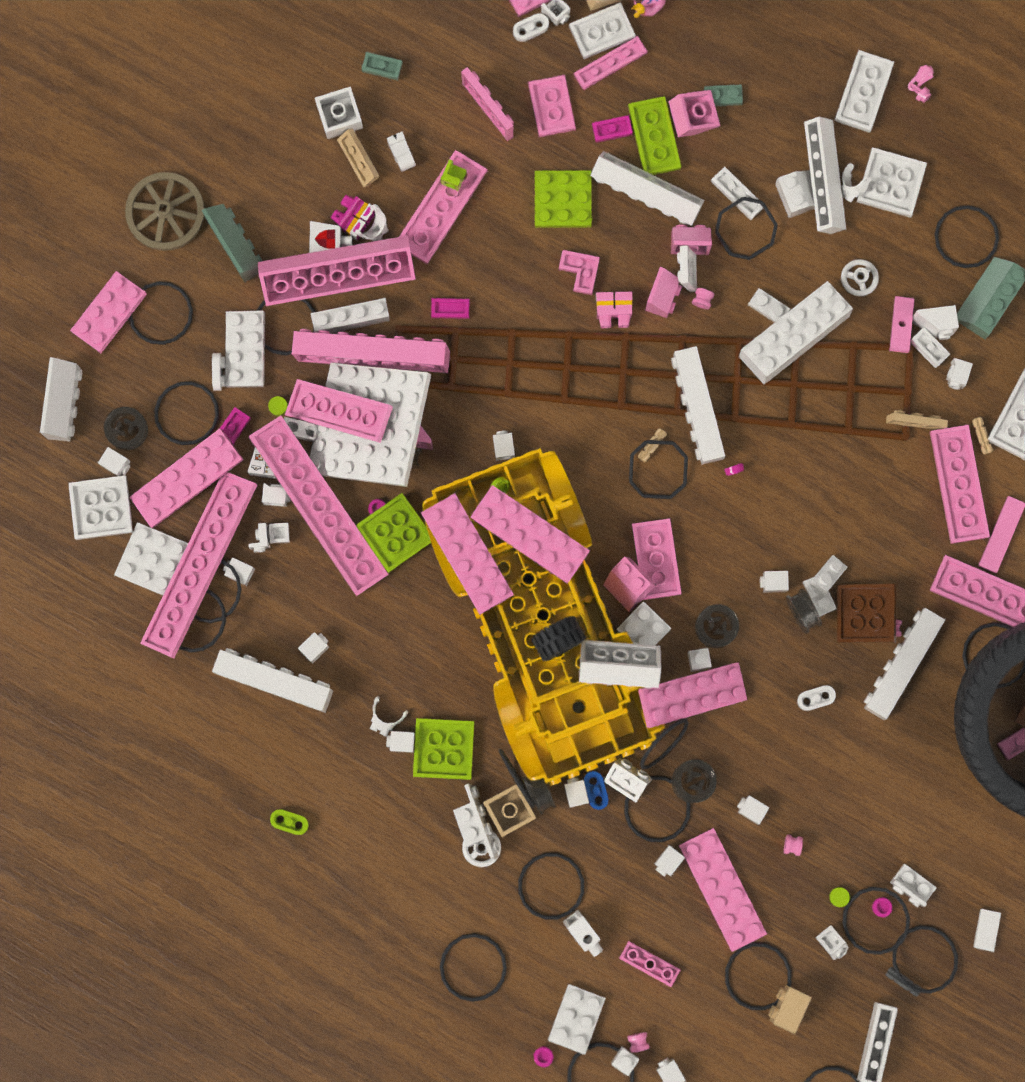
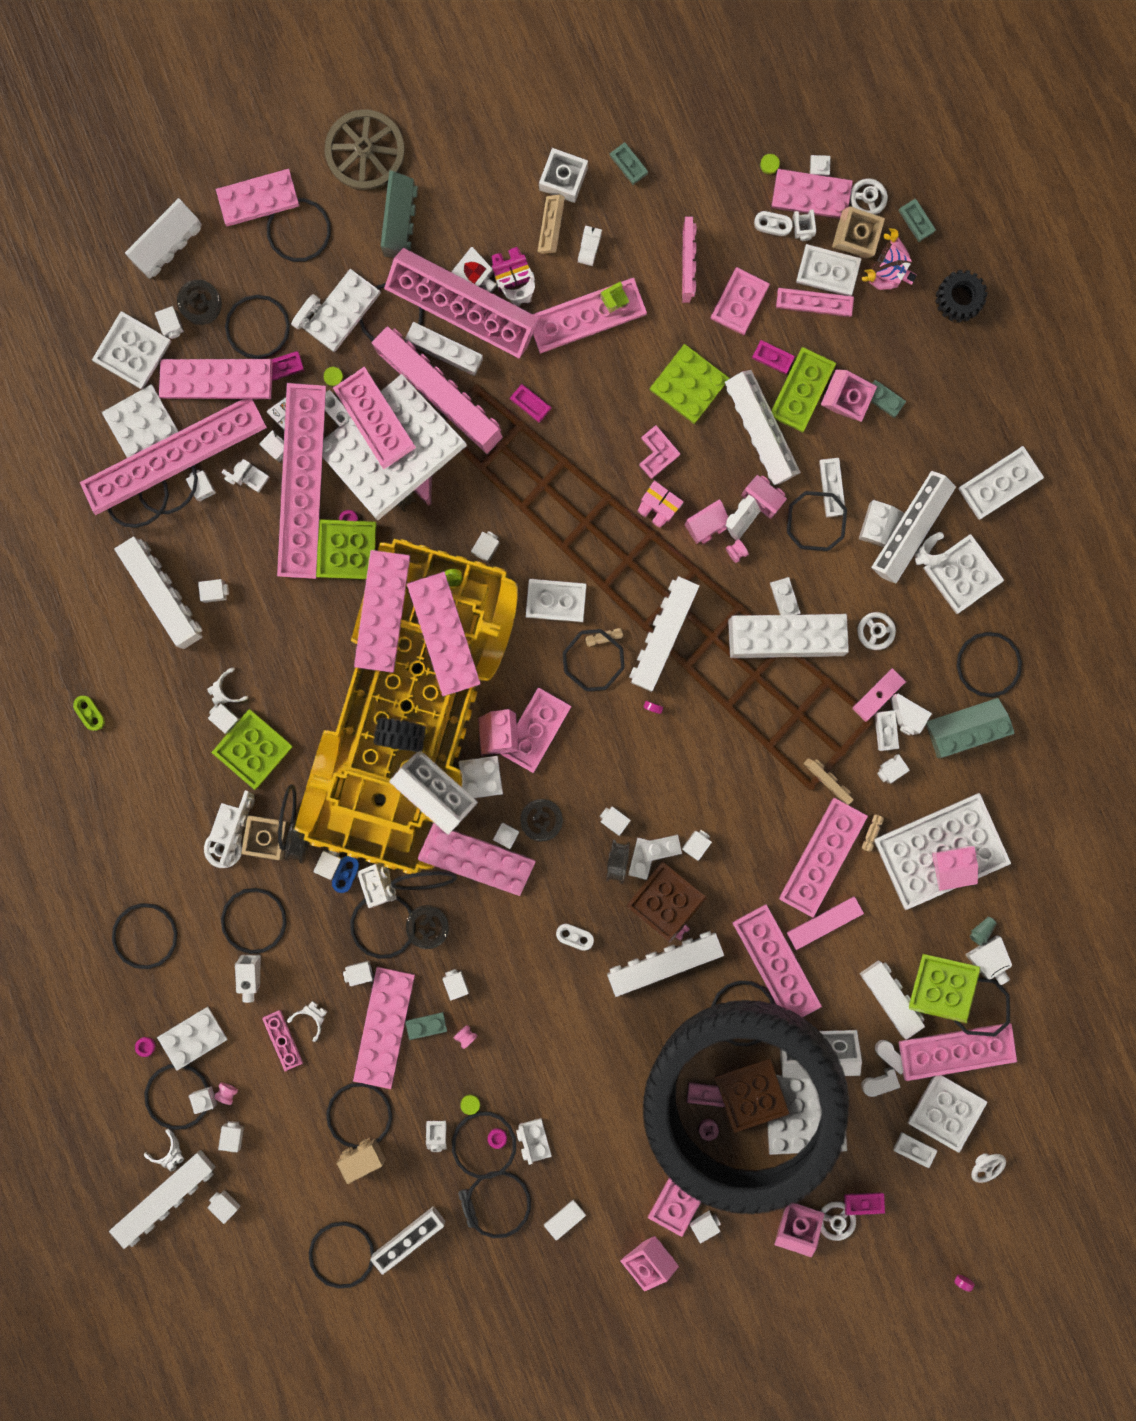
camera: 35 degrees right, 5 degrees up
(592, 445) = (555, 600): none -> white plate
(661, 919) = (316, 1013): none -> white helmet
(755, 861) = (426, 1025): none -> sand green plate
(854, 550) = (697, 844): none -> white brick
(924, 74) = (1060, 506): bright pink piece -> none

